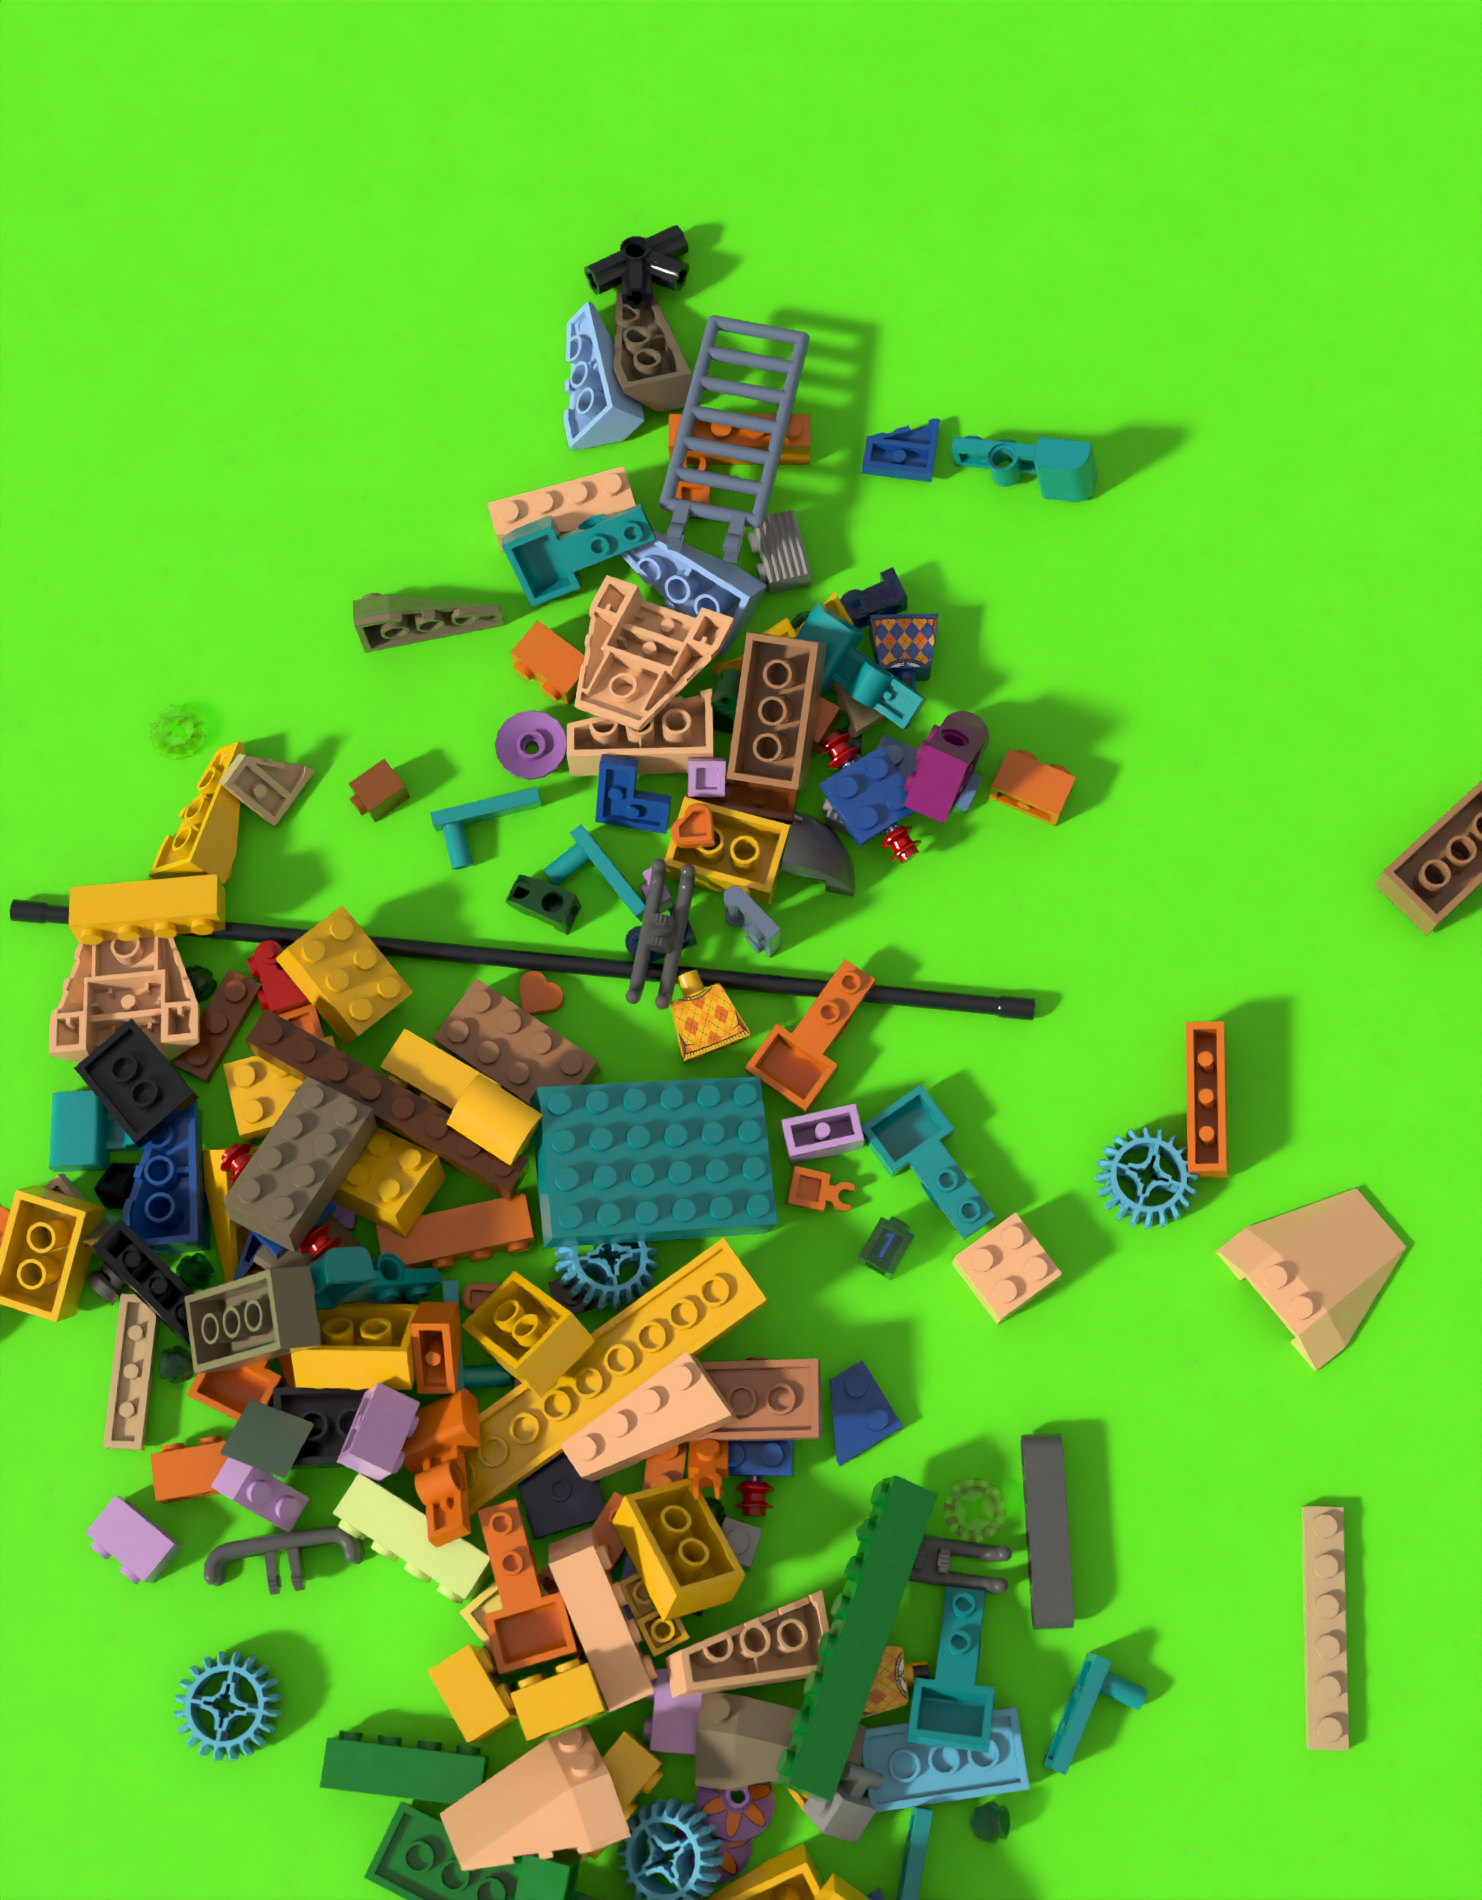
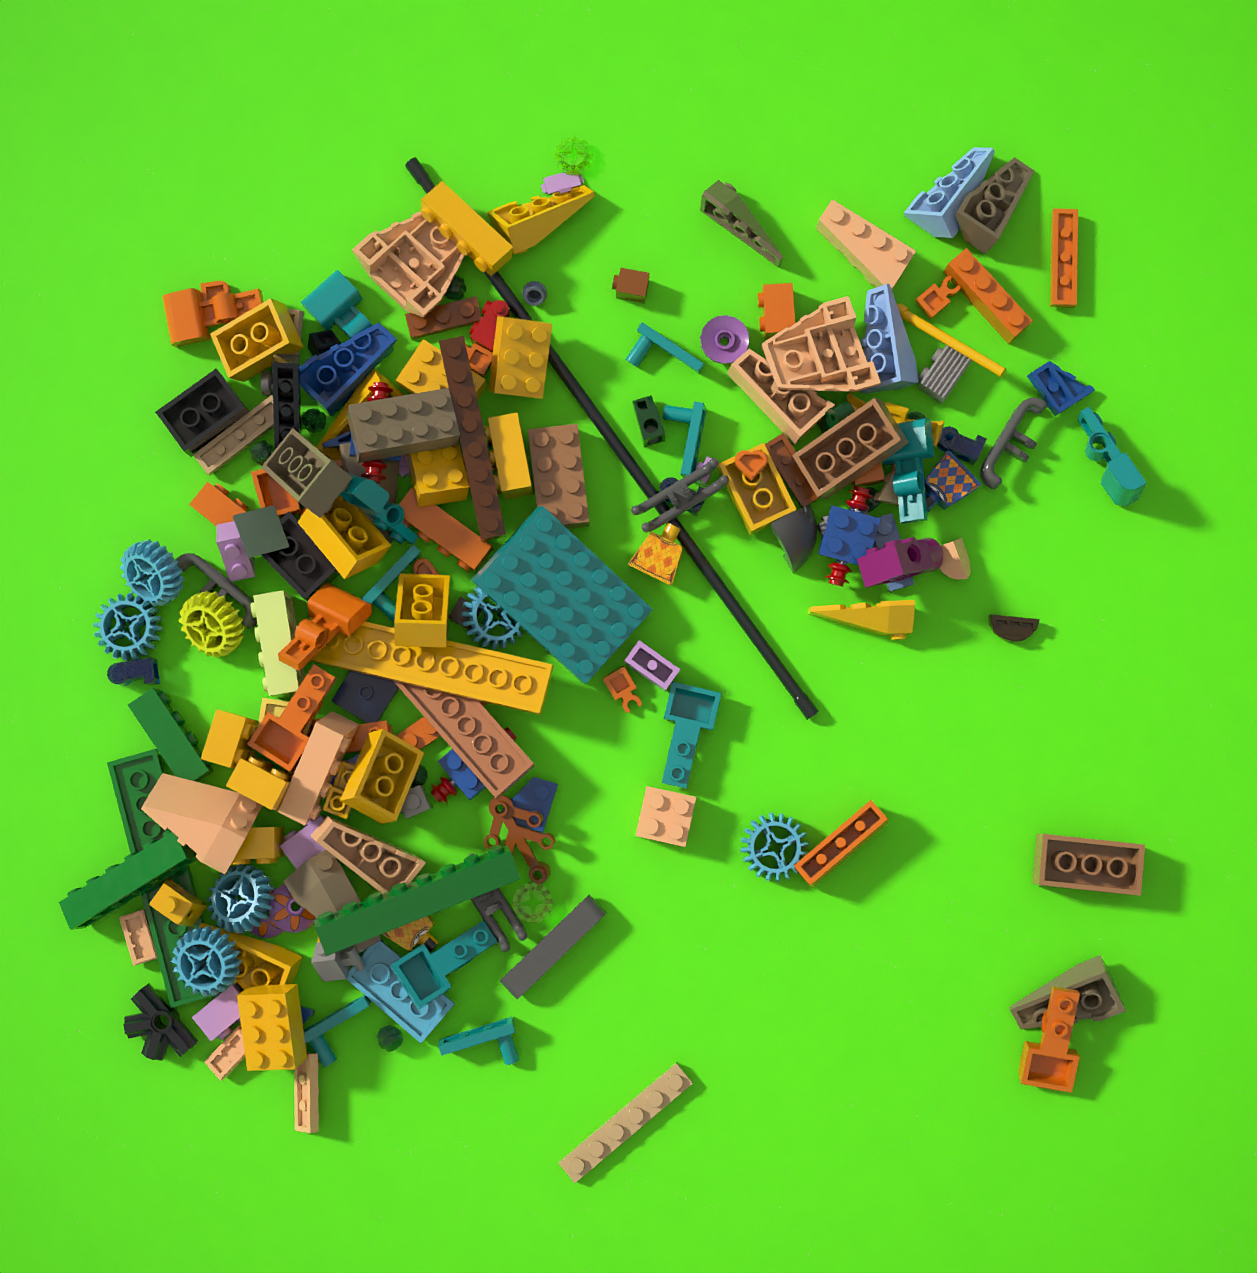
camera: 45 degrees right, 10 degrees up
(66, 1390) = (202, 412): none -> black brick
(132, 1540) = (163, 510): lavender brick -> none
(136, 1083) = (375, 306): black plate -> none
(193, 770) = (561, 182): none -> lavender piece
(193, 1616) = (152, 572): none -> medium azure gear
(265, 784) = (584, 226): tan wing -> none
(278, 1756) = (128, 671): none -> clear blue leg
(287, 901) = (534, 293): none -> sand blue plate
(319, 1585) = (216, 620): none -> neon yellow gear
(379, 1432) = (309, 583): lavender brick -> none
(436, 1347) = (376, 571): orange slope -> none
(494, 1119) = (508, 499): yellow brick -> none
(539, 995) = (599, 461): orange tile -> none
(550, 561) = (829, 262): teal plate -> none
(624, 805) = (735, 412): blue plate -> none
(640, 264) = (1039, 156): black piece -> none
(652, 1419) = (436, 709): light nougat wedge -> none
(692, 411) = (977, 259): sand blue bar -> none
(706, 777) = (785, 444): lavender plate -> none
(708, 1465) = (435, 754): orange plate -> none
(740, 303) = (1064, 258): none -> orange plate
(759, 927) = (728, 540): sand blue plate -> none
(775, 507) = (950, 341): none -> yellow bar
(795, 1061) = (677, 619): orange plate -> none
(881, 1455) = (517, 834): none -> dark orange plant
(886, 1246) = (624, 747): clear green brick -> none
(928, 598) = (1002, 444): none -> dark grey piece
(996, 837) = (885, 618): none -> yellow wedge
(998, 713) = (955, 560): none -> light nougat brick
(1032, 786) = (932, 614): orange brick -> none
(1123, 717) = (1012, 628): none -> dark brown plate
(1318, 1269) = (804, 971): light nougat wedge -> none

